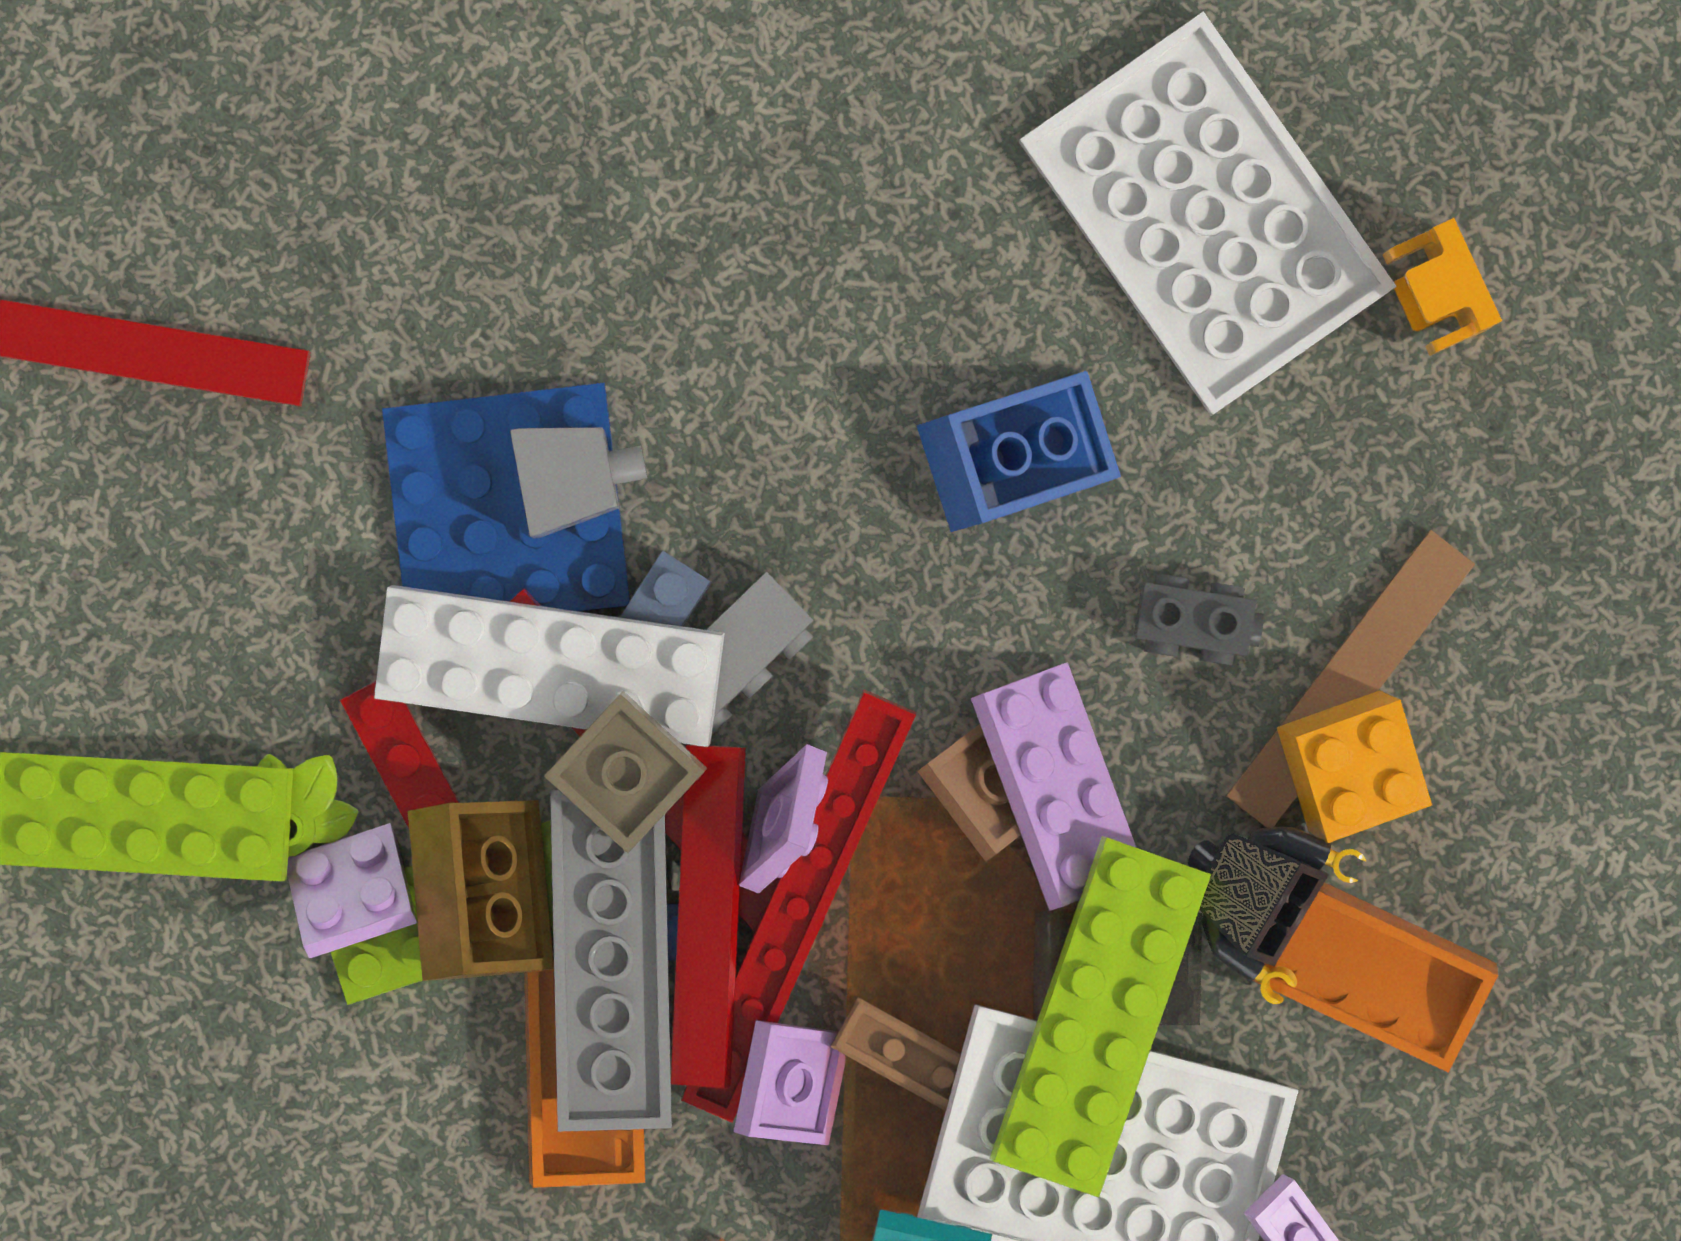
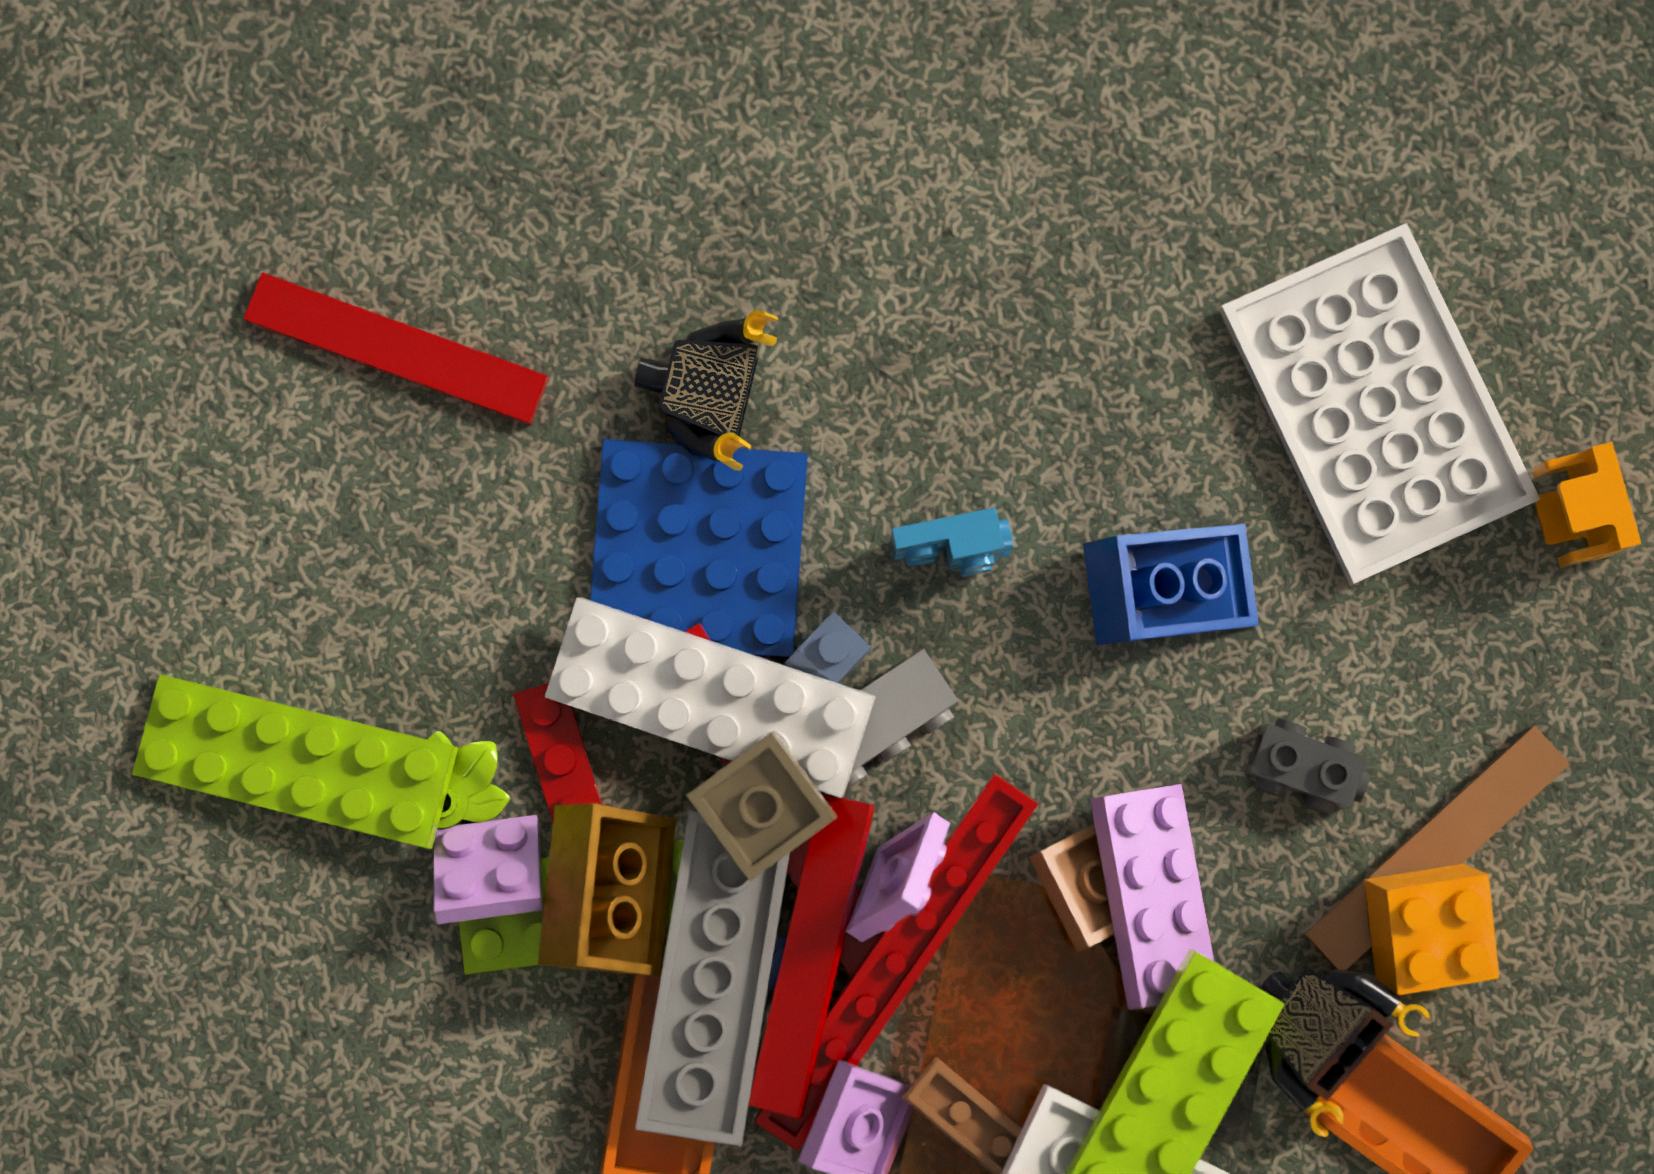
camera: 10 degrees right, 5 degrees down
(484, 331) = (709, 385): none -> black torso
(570, 475) = (762, 528): light grey torso -> none
(793, 447) = (968, 540): none -> dark azure plate

